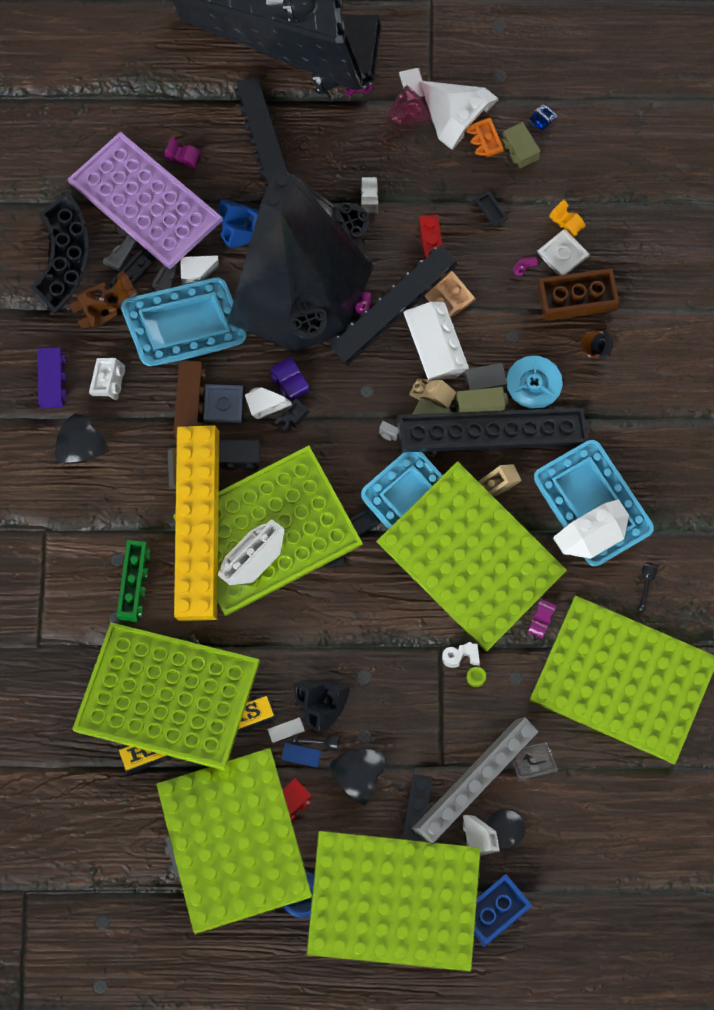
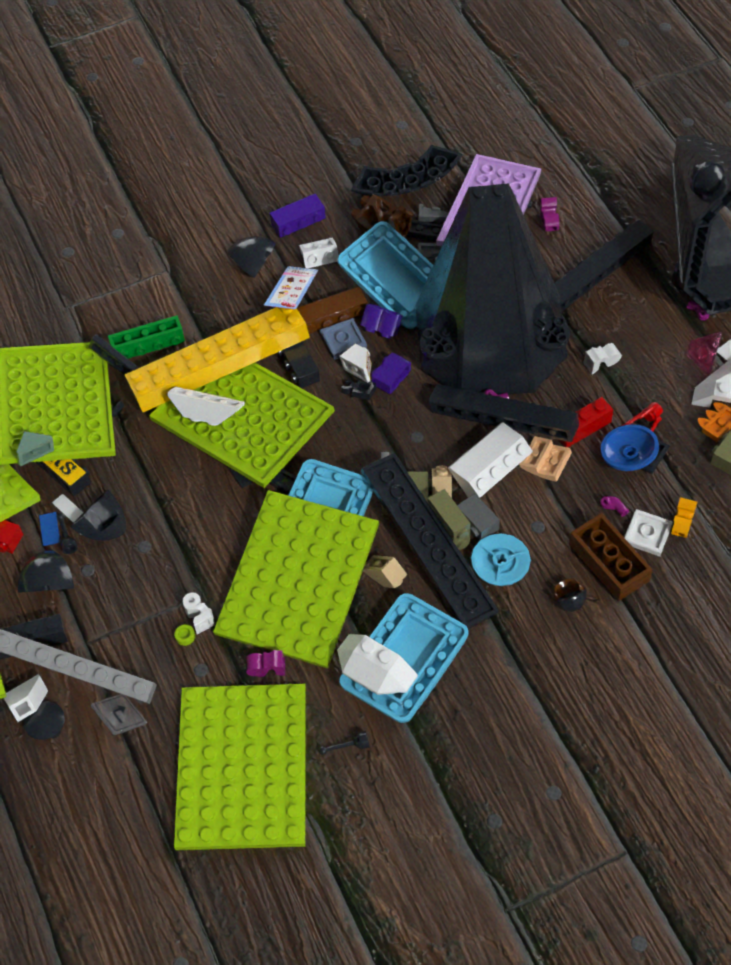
camera: 70 degrees right, 15 degrees down
(142, 620) = (111, 355): none -> black tile
(151, 421) = (291, 287): none -> sticker
(227, 359) = (381, 320): none -> dark purple brick
(227, 730) = (33, 447): none -> sand green slope
(450, 186) = (651, 413): none -> red plant
(479, 211) = (629, 447): none -> blue dish

